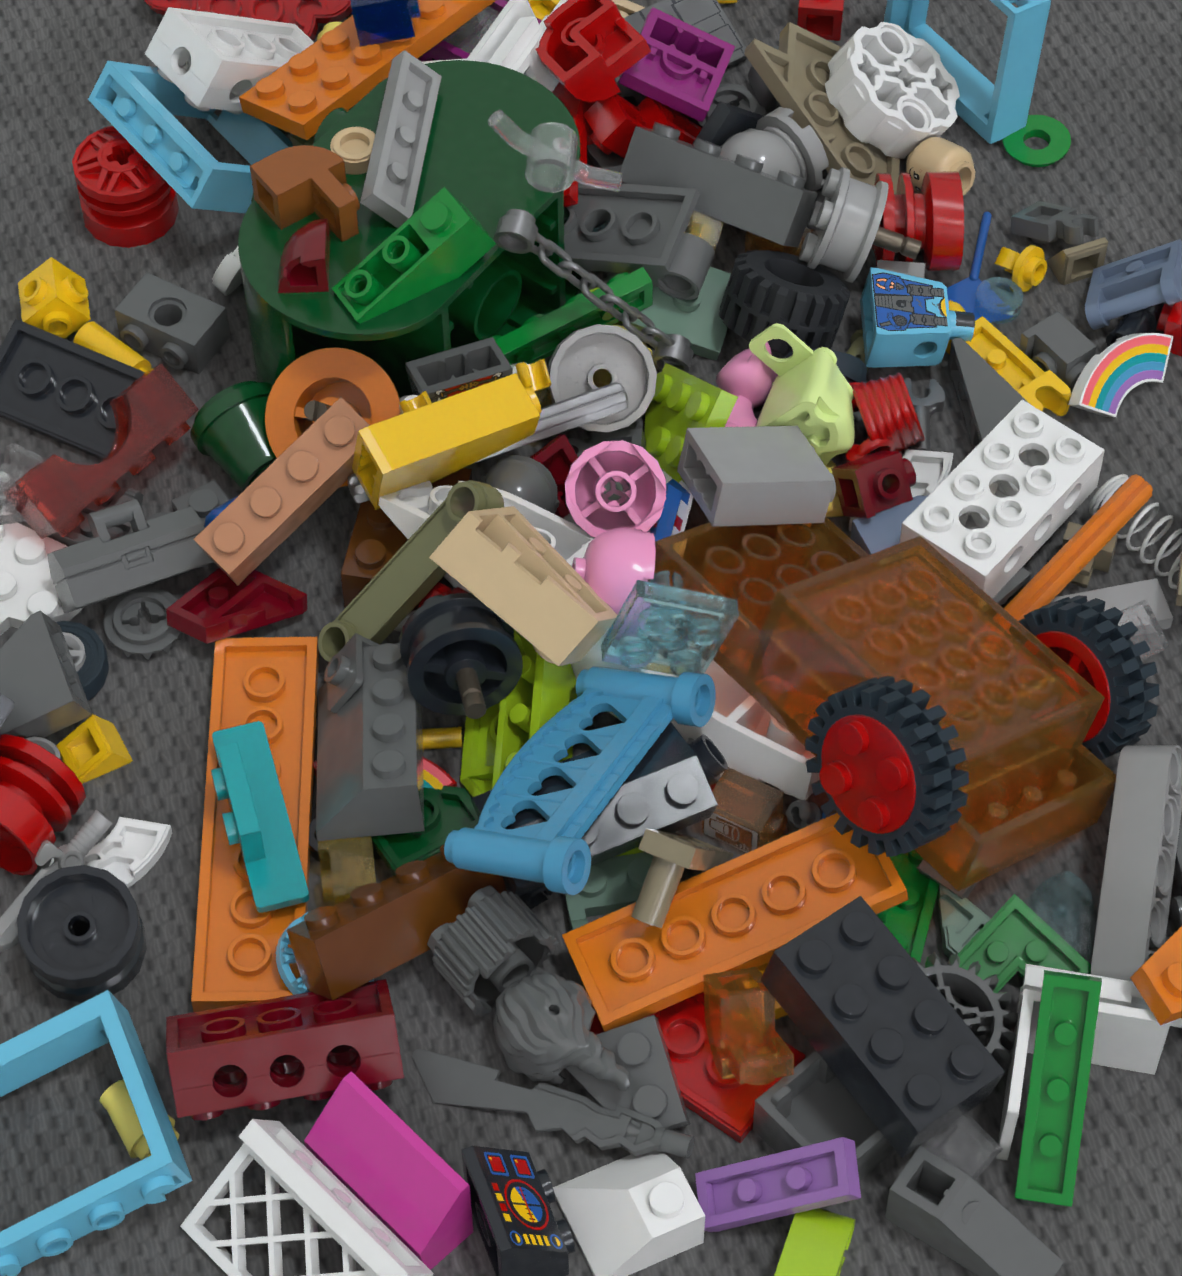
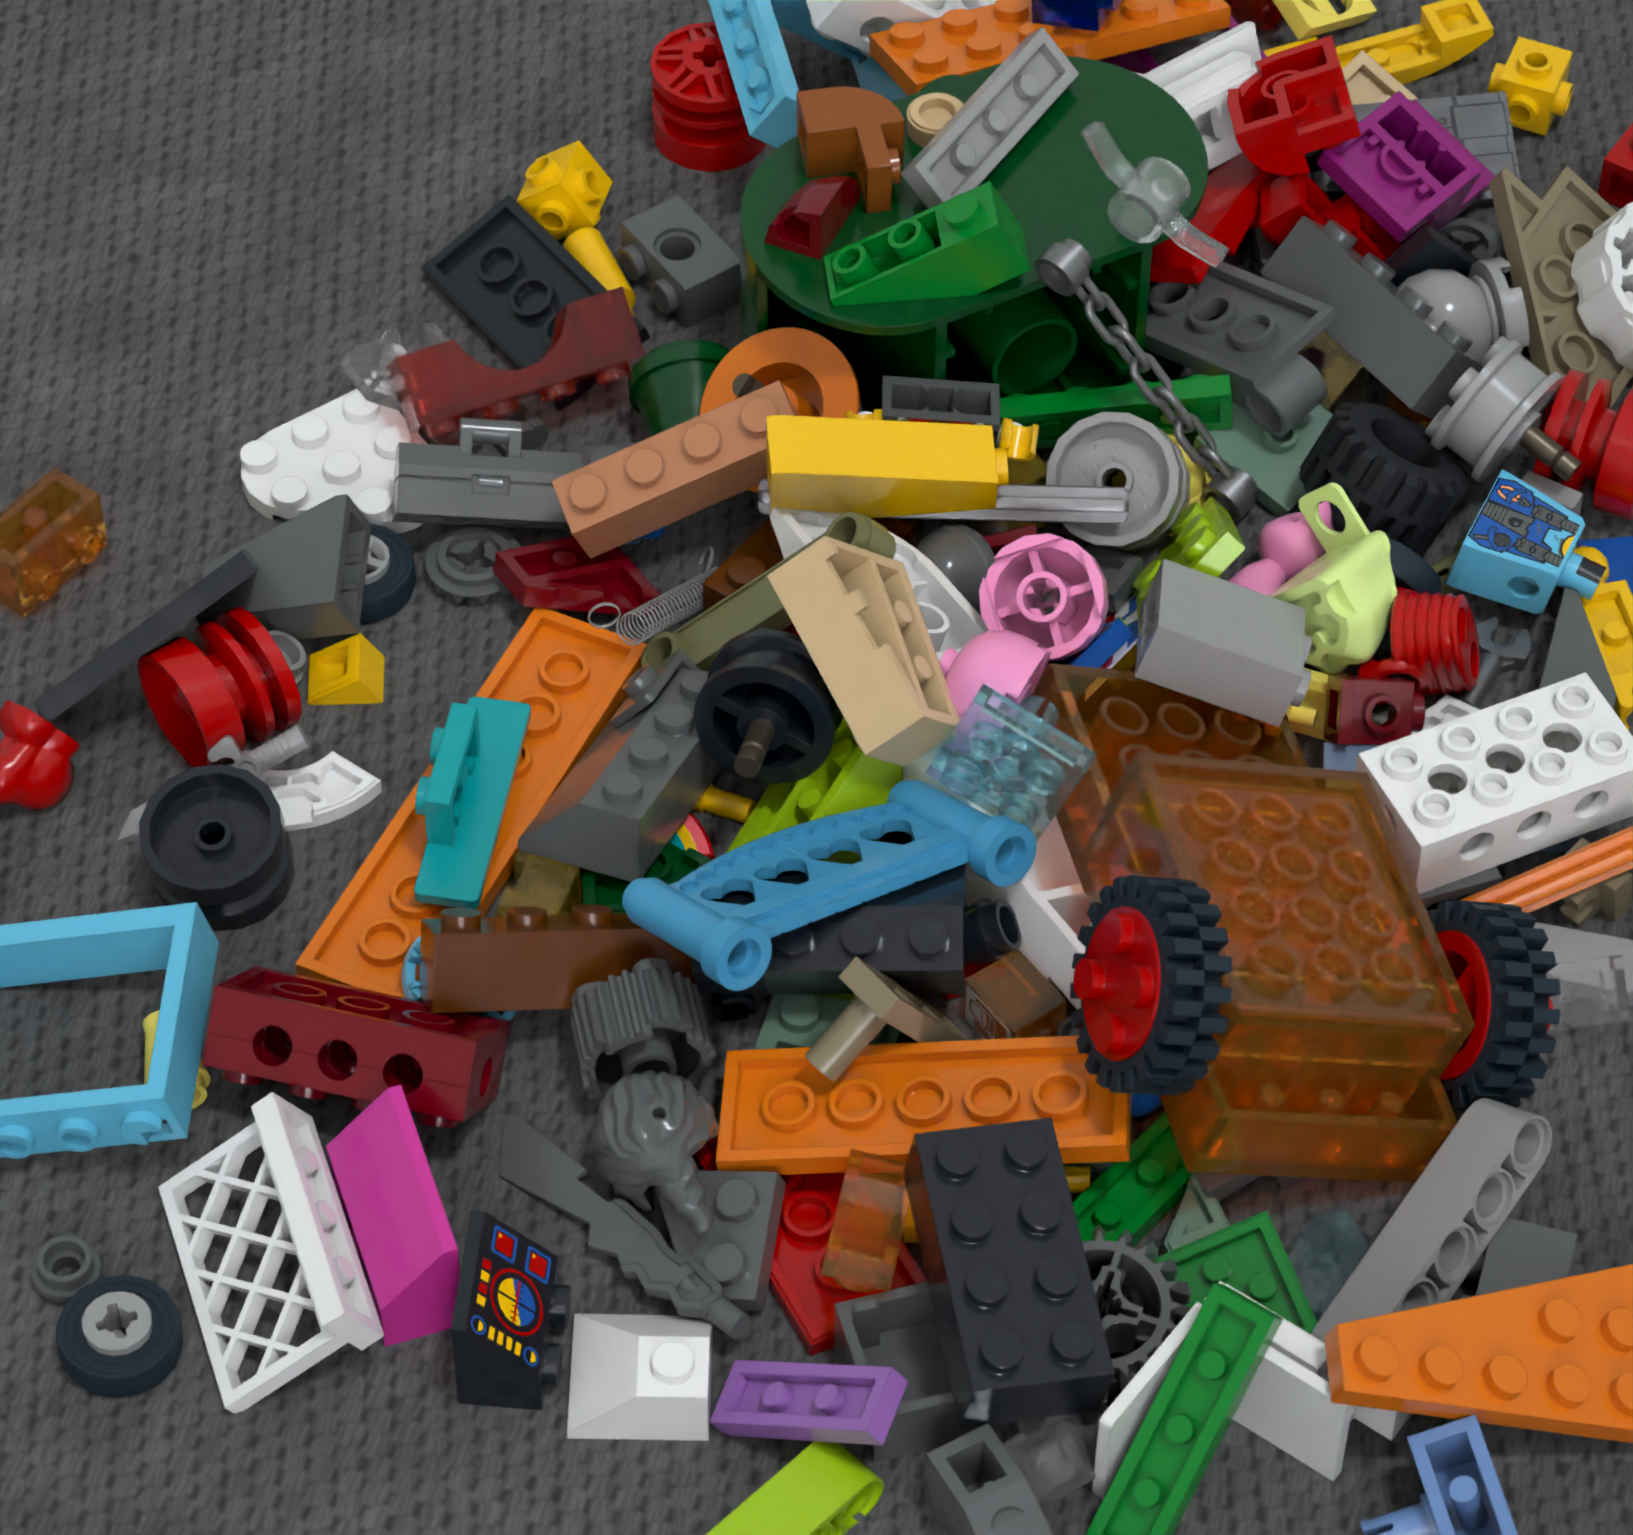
camera: 25 degrees right, 5 degrees down
(313, 595) = (676, 620): none -> light grey piece

